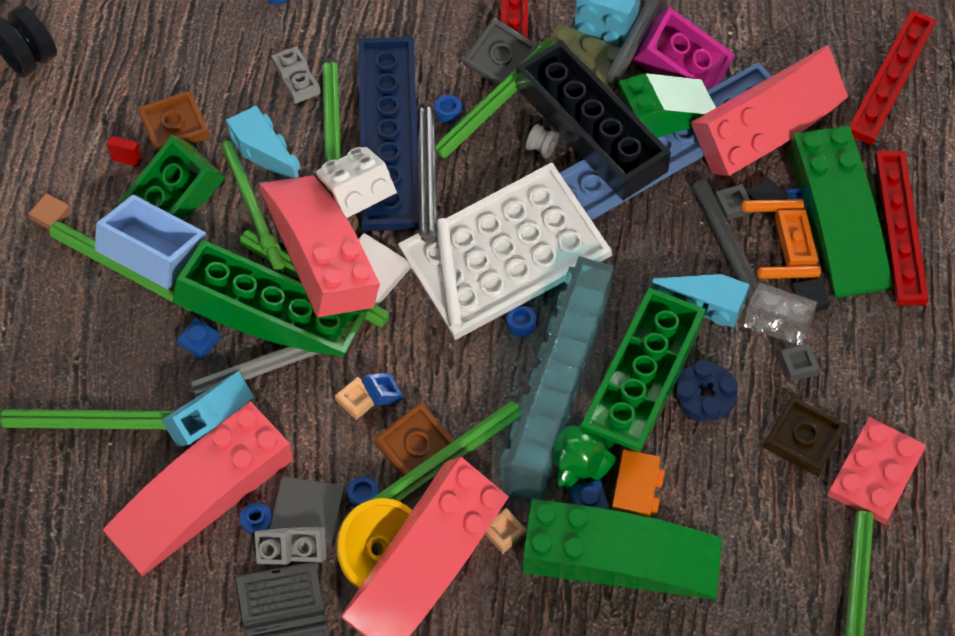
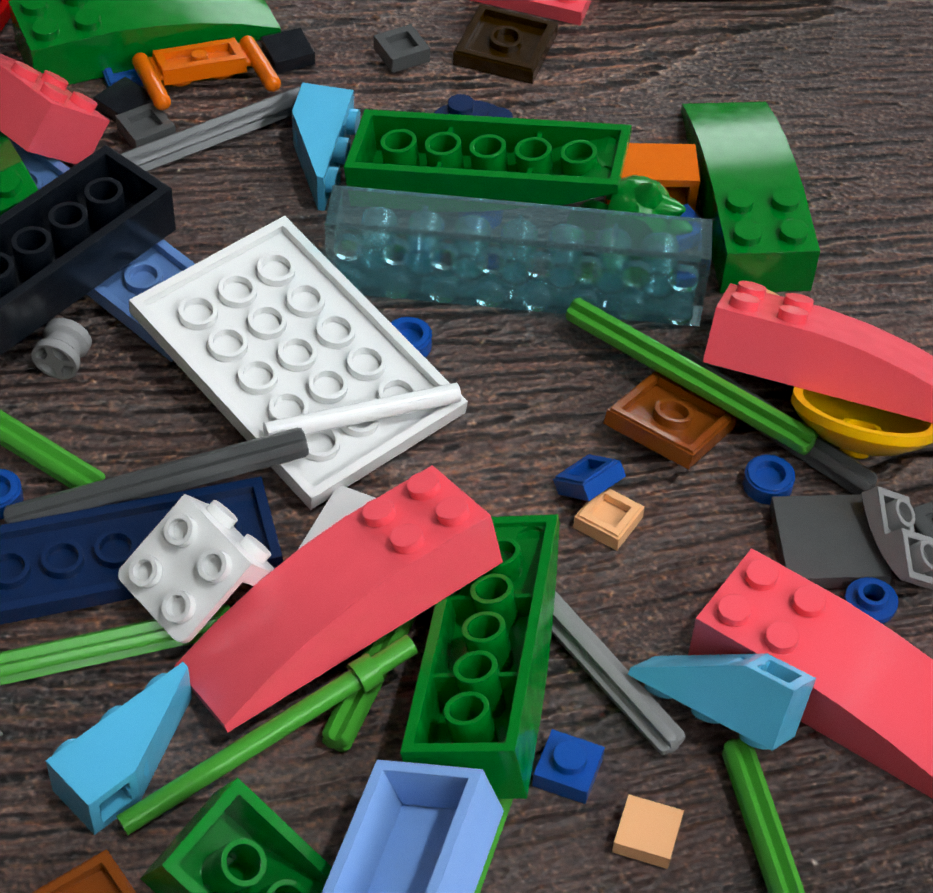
camera: 105 degrees left, 10 degrees down
(149, 365) = (647, 831): none -> light nougat tile
(780, 314) = (339, 53): clear brick -> none

